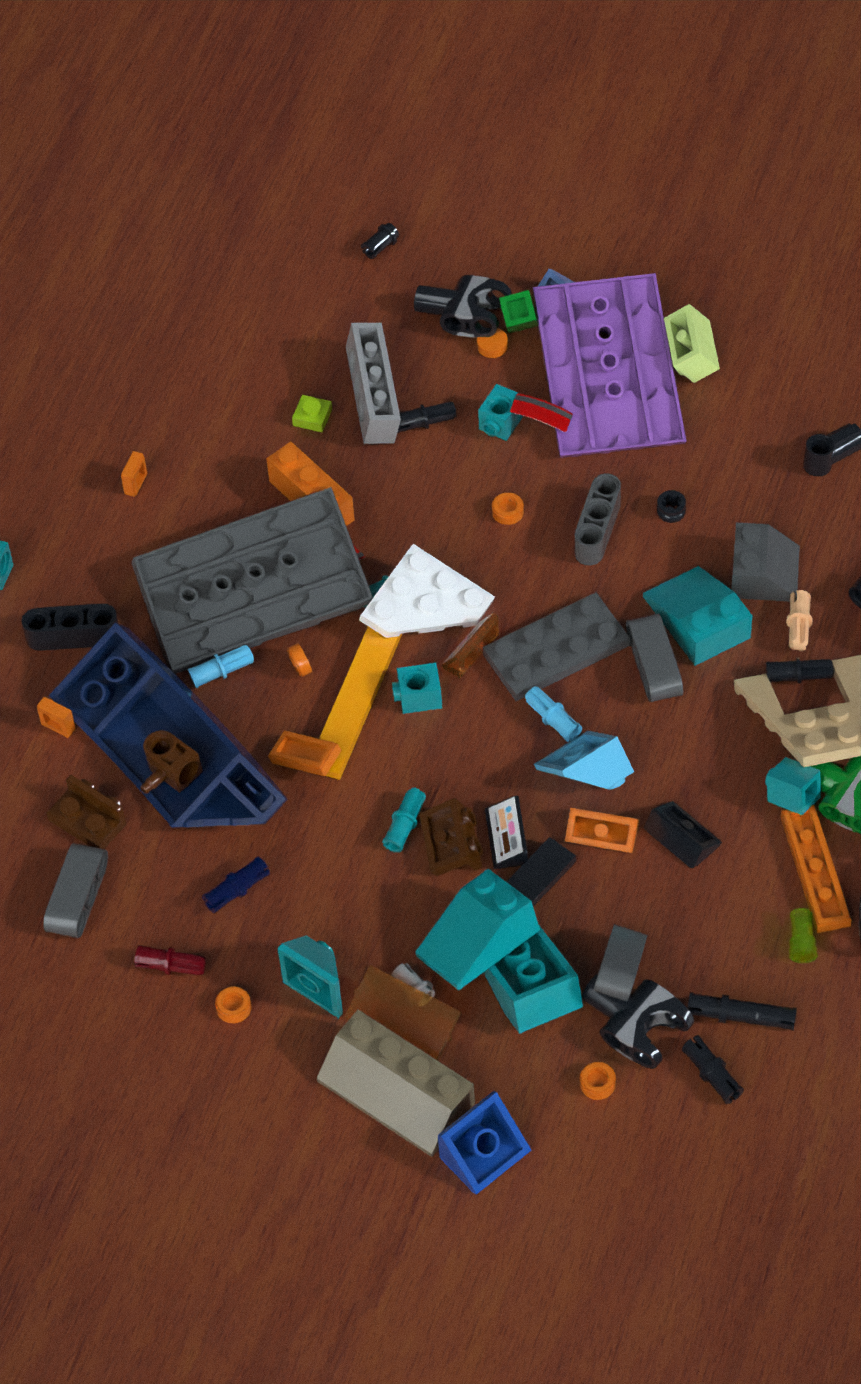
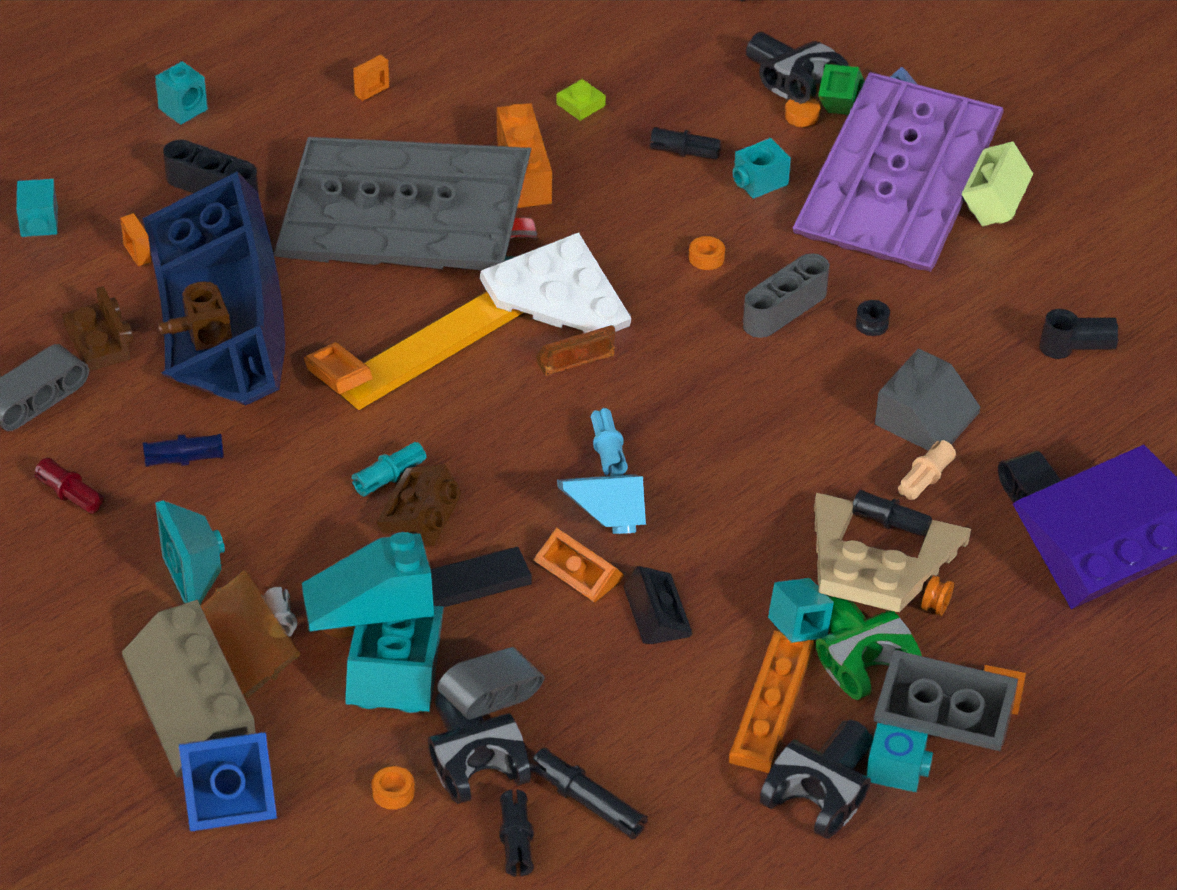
camera: 25 degrees right, 10 degrees down
(221, 665) = (321, 264): medium azure axle -> none
(233, 1004) = (97, 552): orange tile -> none
(299, 660) = (398, 290): orange tile -> none
(372, 383) = (652, 92): light grey brick -> none
(422, 677) = (492, 362): teal brick -> none
(506, 833) = (480, 525): slope -> none
(541, 411) = (799, 179): red sticker -> none
(556, 646) = (662, 387): dark grey plate -> none
(654, 658) = (748, 437): dark grey beam -> none
(701, 614) = (827, 424): teal slope -> none
(802, 943) = (702, 760): clear neon green pin -> none

